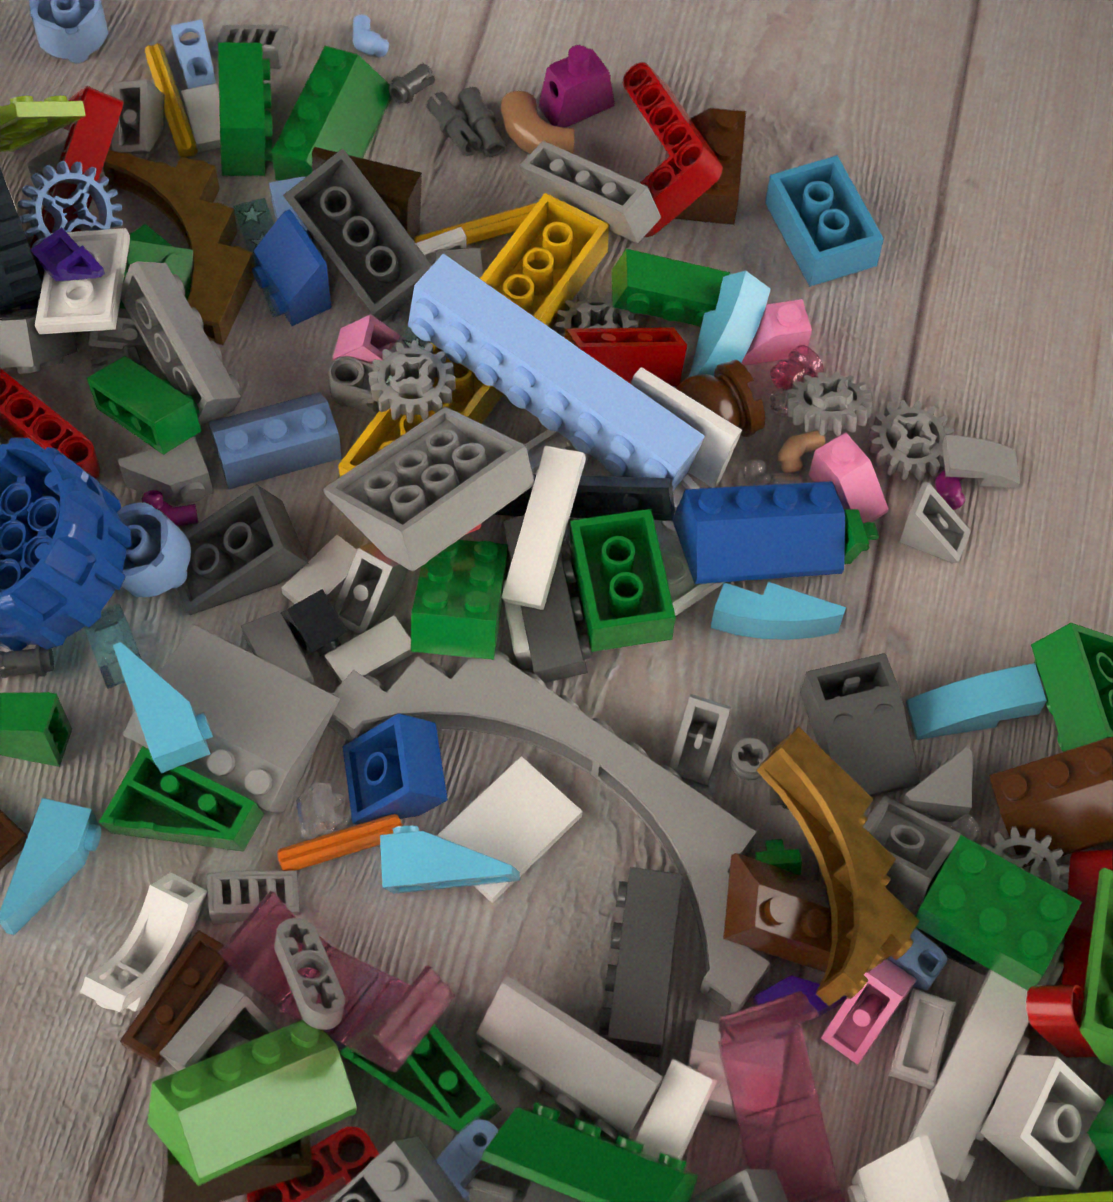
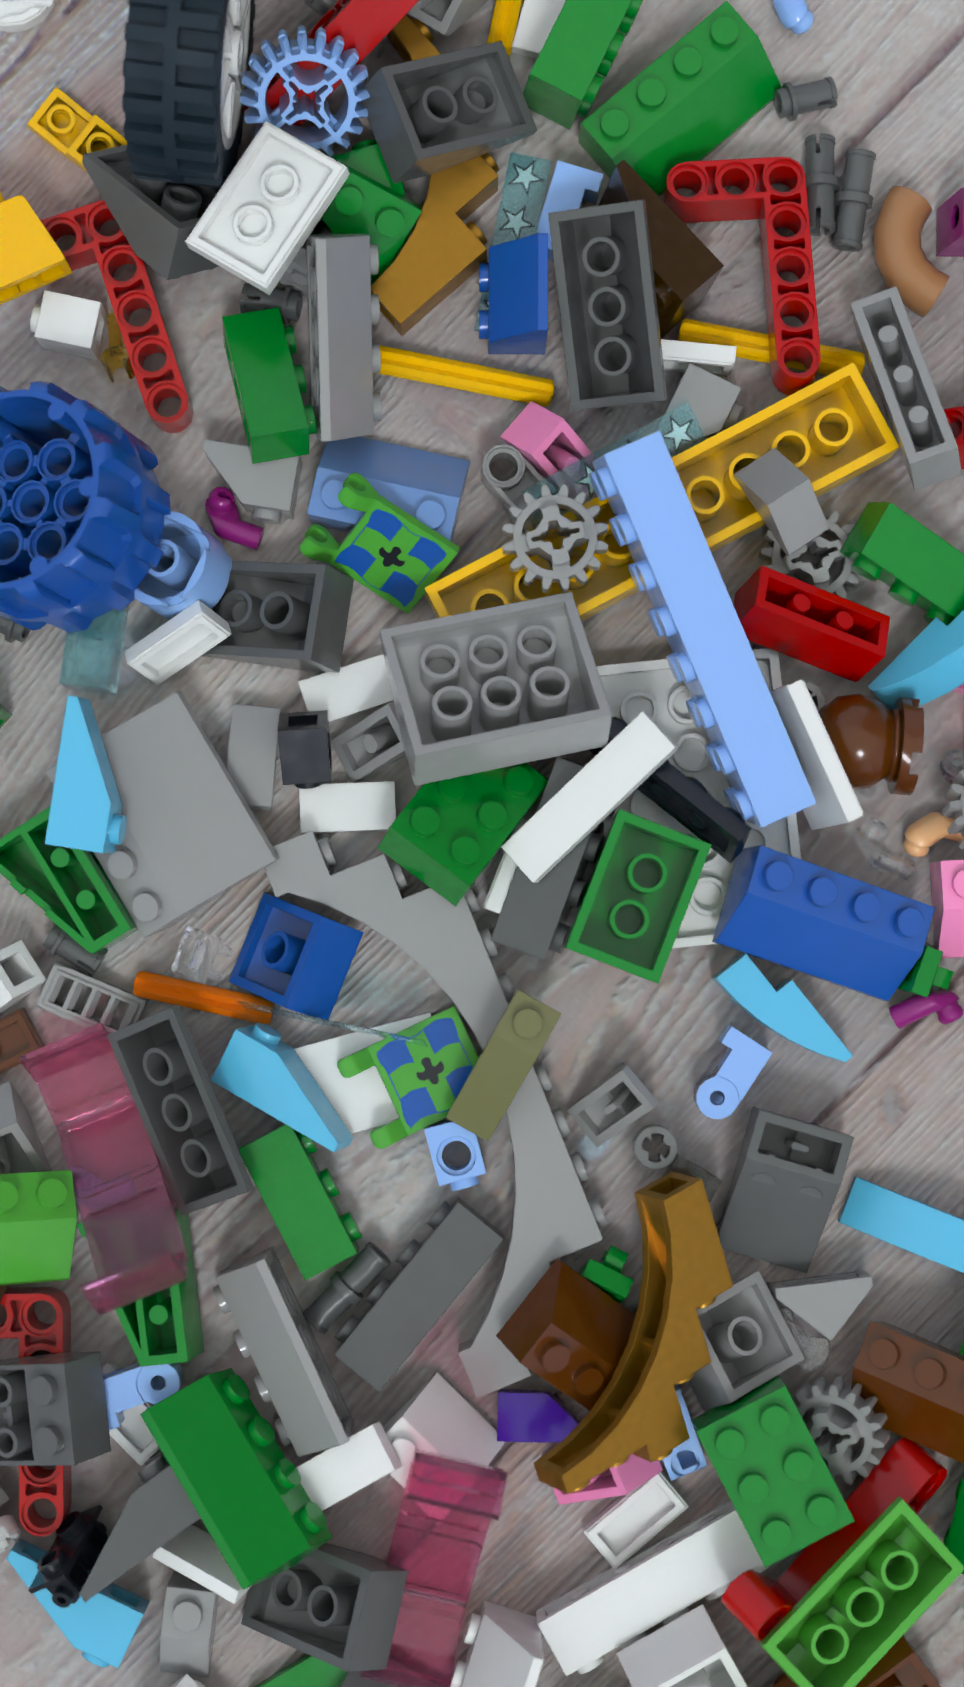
camera: 30 degrees right, 25 degrees up
(65, 259) = (259, 174): dark purple slope -> none
(172, 183) = (446, 110): none -> dark grey slope
(175, 601) = (177, 642): none -> white tile
(215, 860) = (63, 945): none -> dark grey pin
(283, 342) = (466, 376): none -> yellow axle
(295, 460) = (384, 549): none -> bright green flag
(306, 989) = (97, 1166): light grey beam -> none
(373, 911) = (180, 1111): none -> dark grey slope
(435, 142) = (778, 252): none -> red beam
(452, 792) = (333, 1023): none -> clear light blue sticker
(506, 941) = (301, 1199): none -> green brick
(544, 796) = (417, 1077): none -> bright green flag
(555, 284) = (783, 500): none -> light grey slope
(586, 985) = (346, 1288): none -> dark grey pin
(600, 741) = (503, 1064): none -> olive slope
(603, 823) = (461, 1177): none -> light blue brick
(771, 683) = (724, 1089): none -> light blue leg
(871, 557) = (918, 1007): none -> magenta arm

